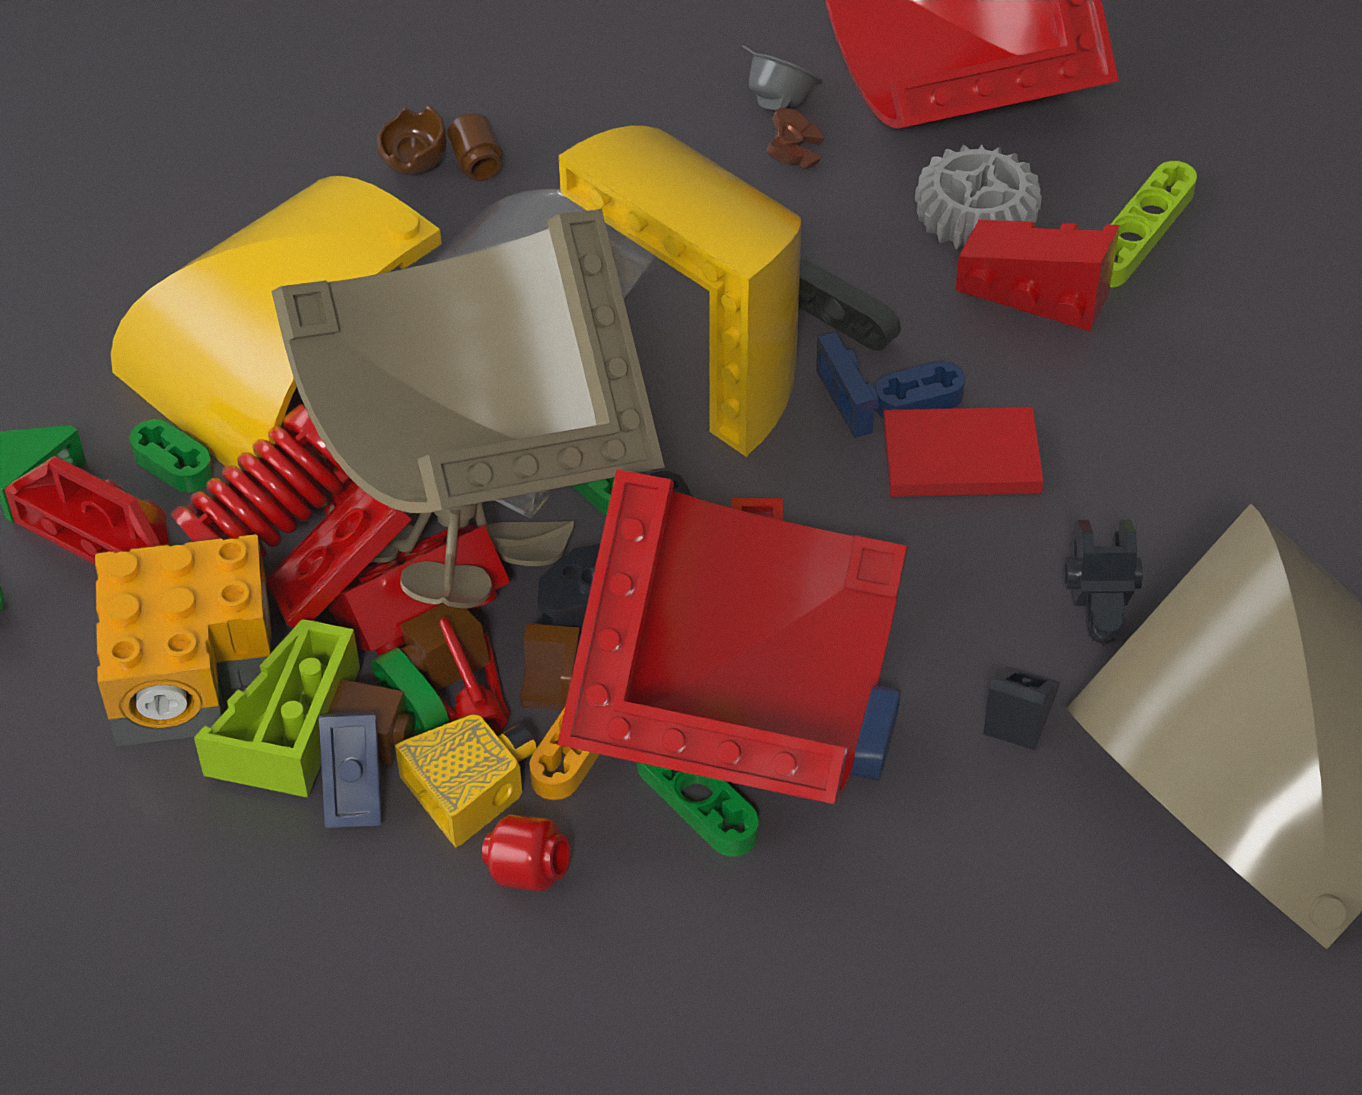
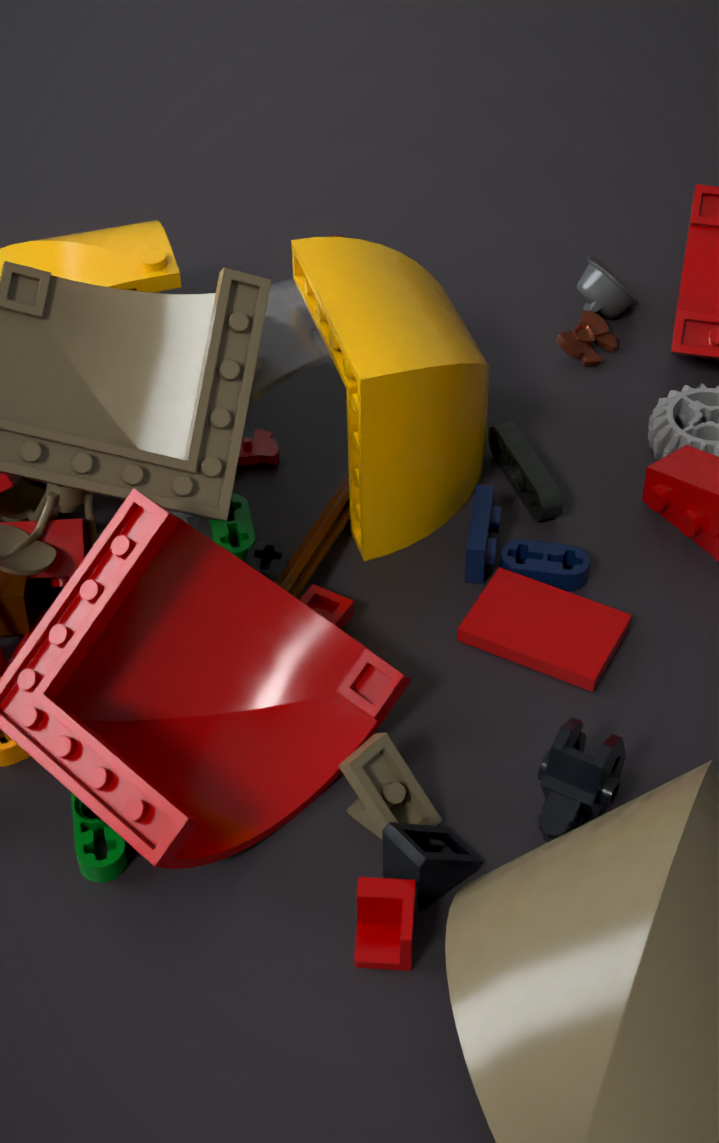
camera: 30 degrees right, 5 degrees down
(413, 141) = (276, 241): reddish brown hair -> none
(697, 429) = (317, 542): none -> reddish brown axle
(876, 732) = (279, 829): dark blue beam -> none
(948, 661) = (385, 787): none -> dark tan slope
(1026, 768) = (385, 923): none -> red panel

